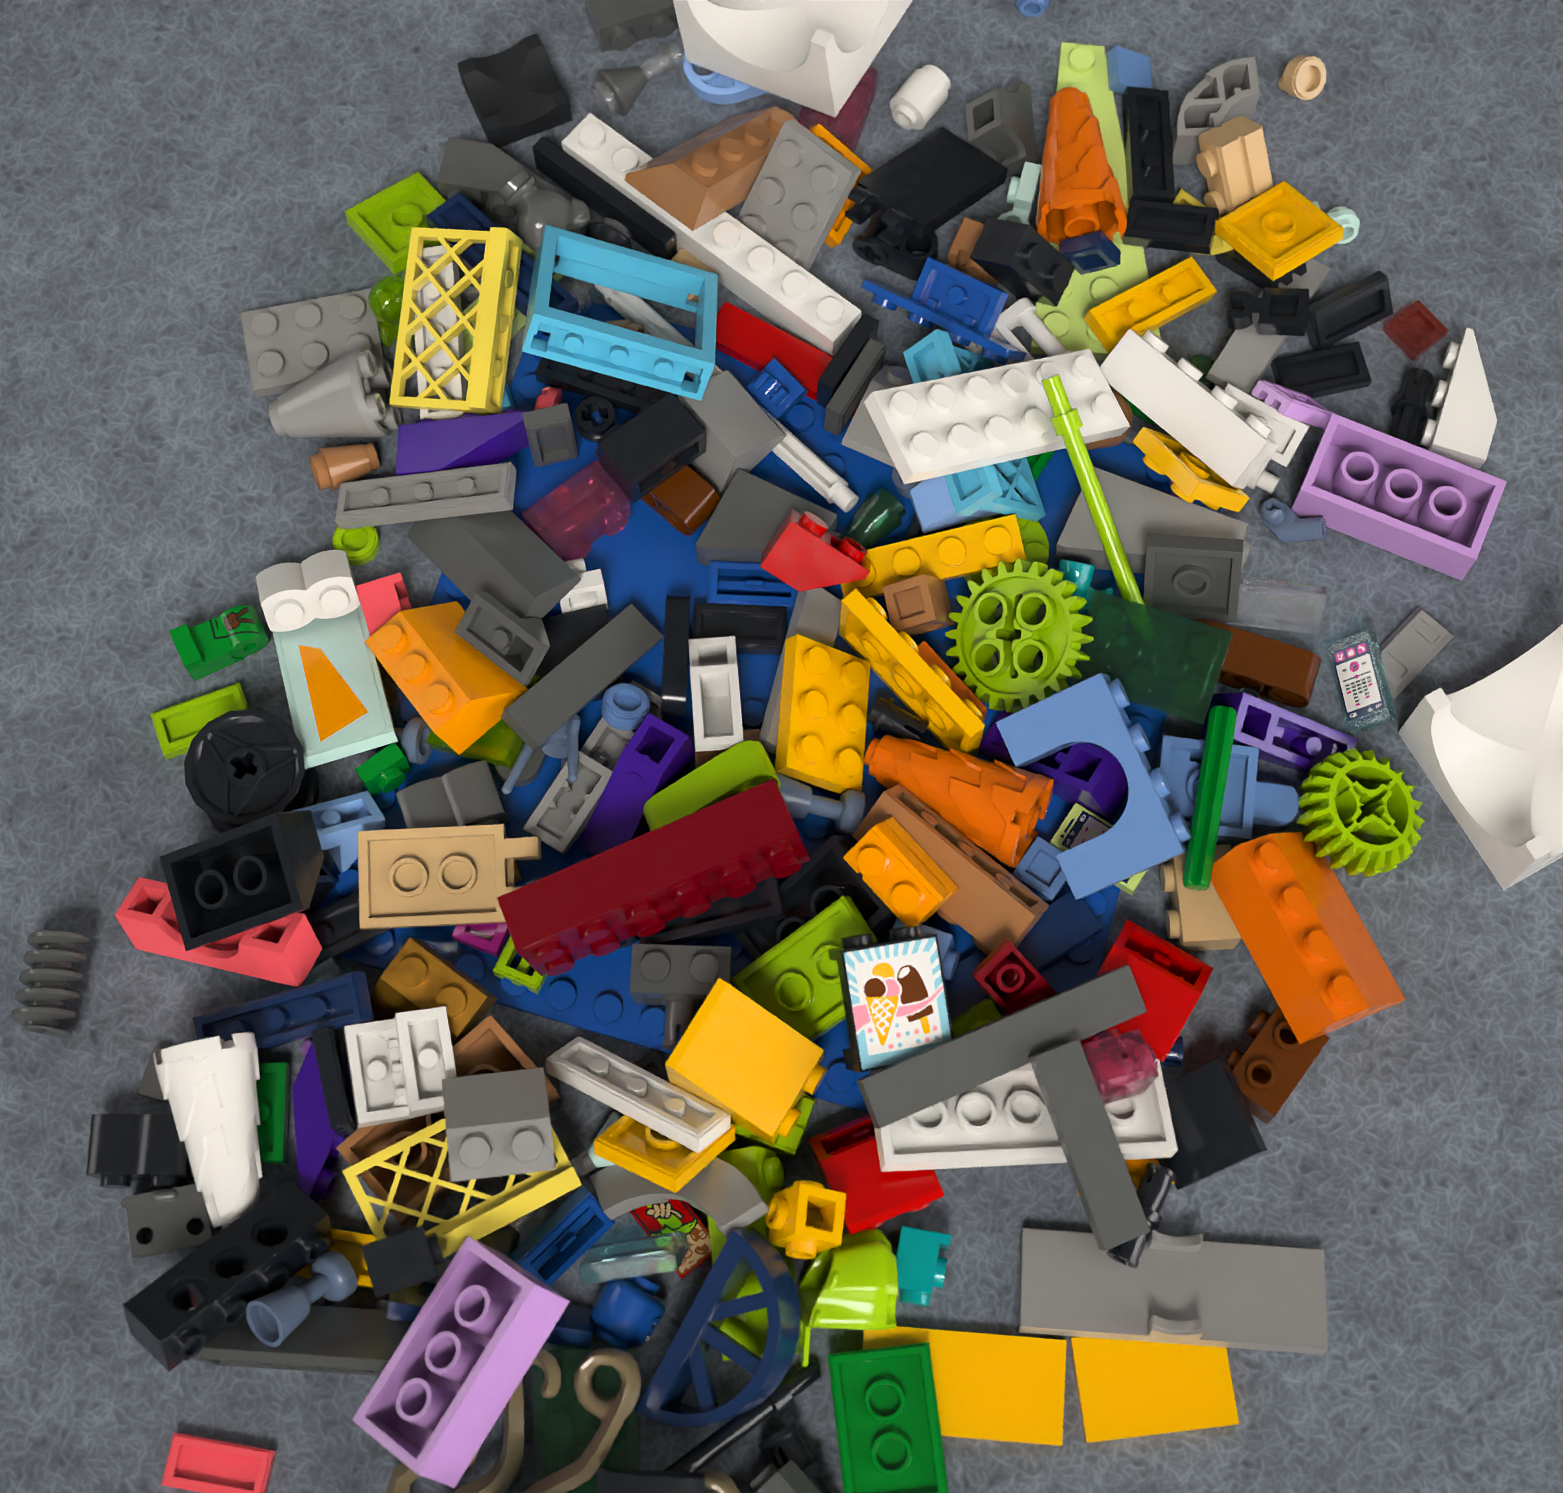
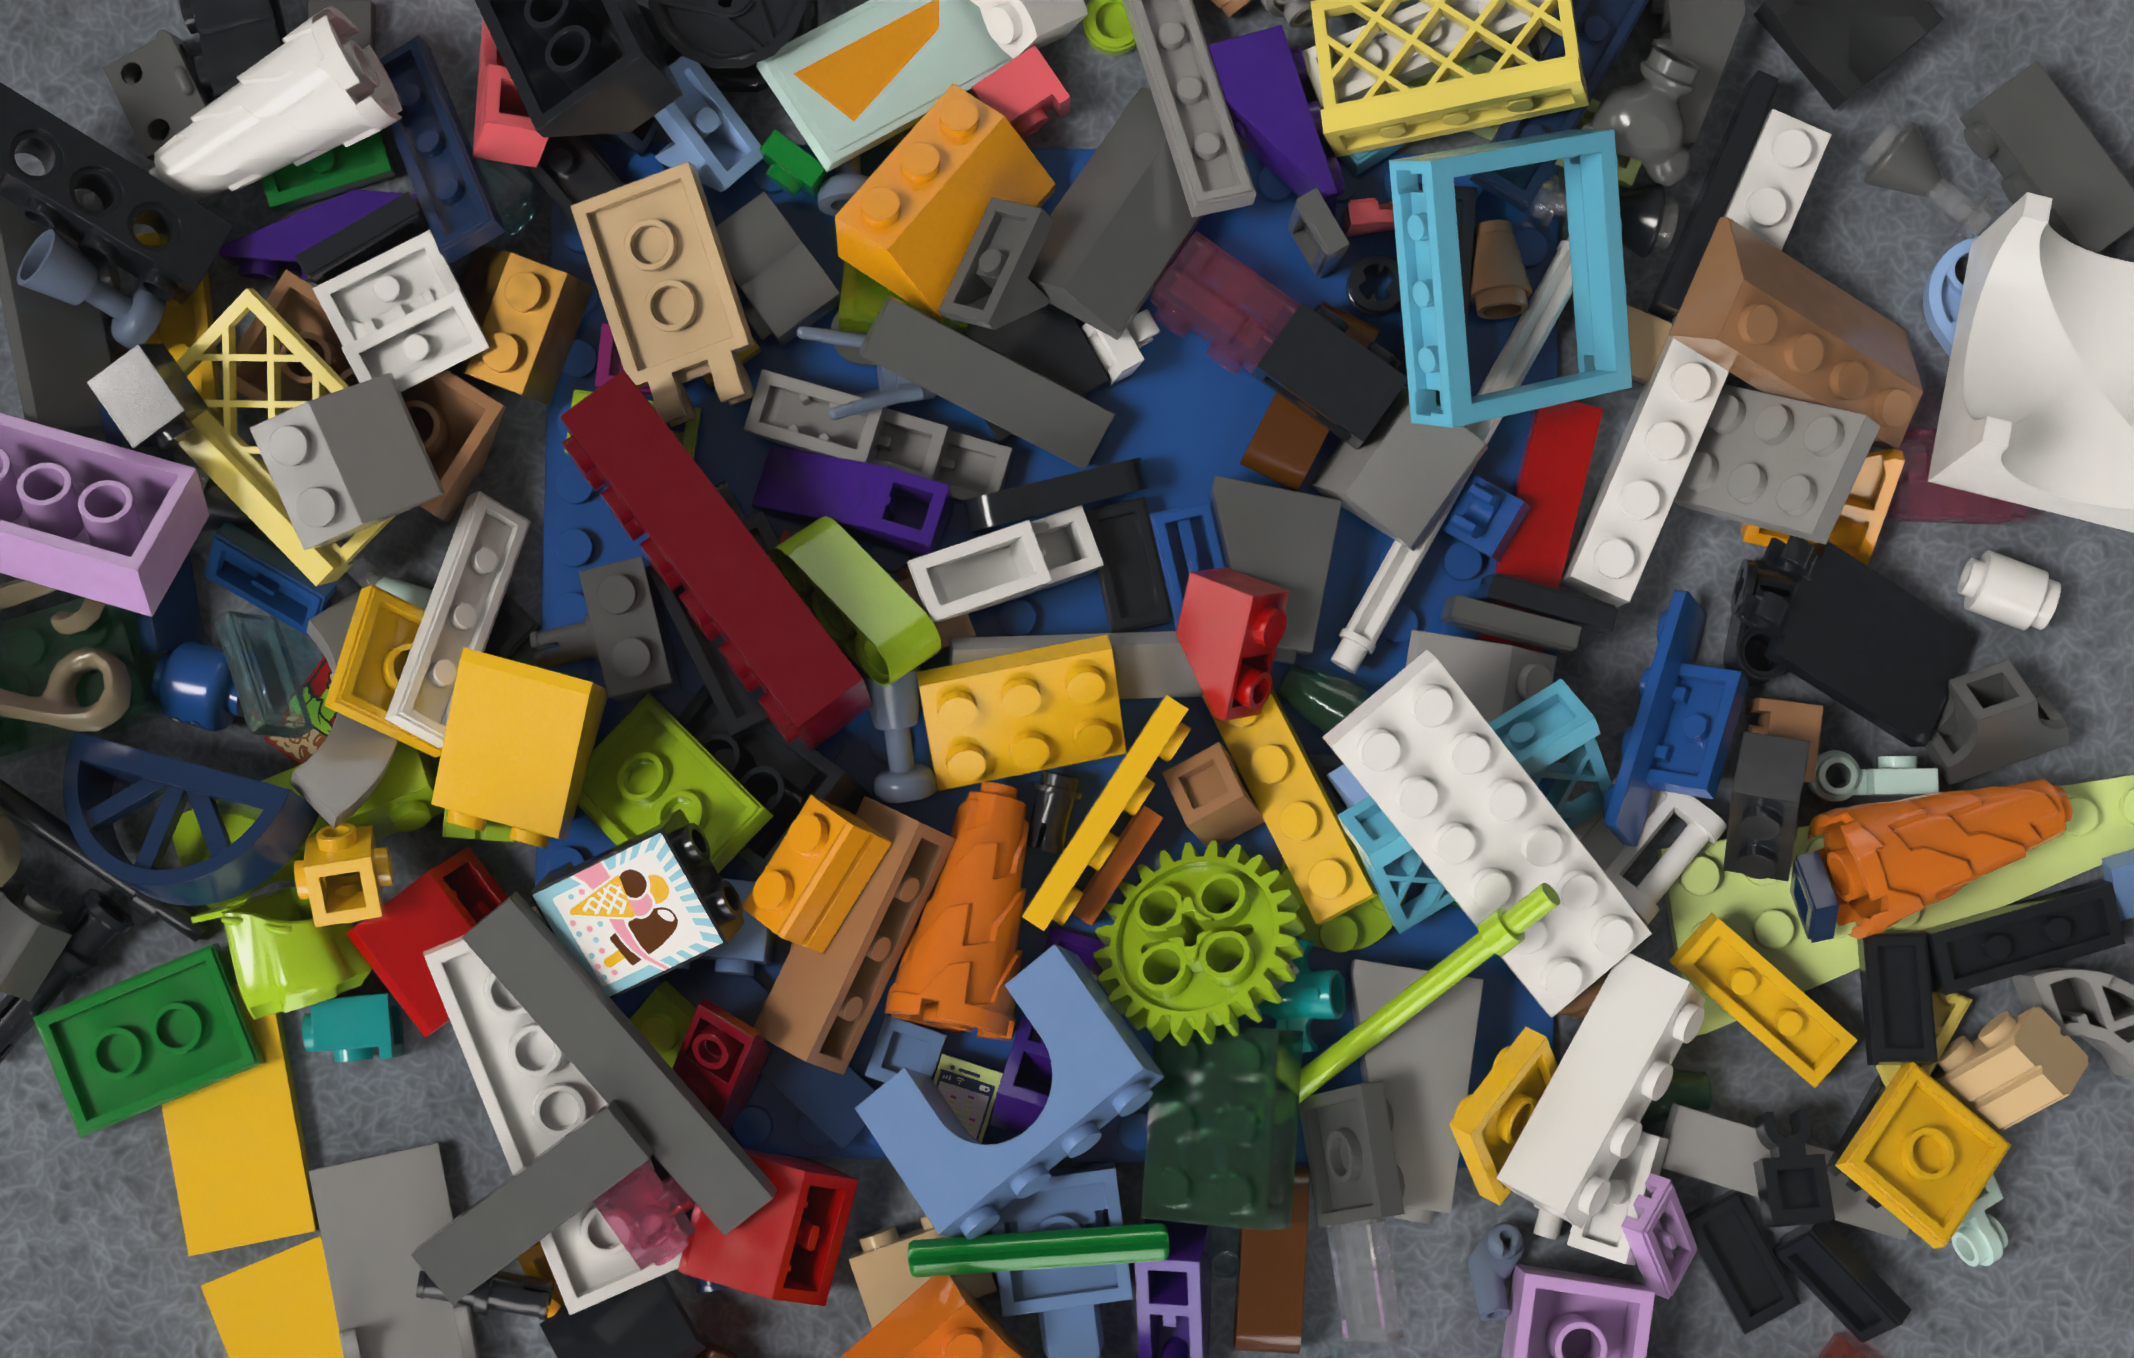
camera: 70 degrees right, 15 degrees up
(625, 706) = (964, 450): medium blue tile -> none

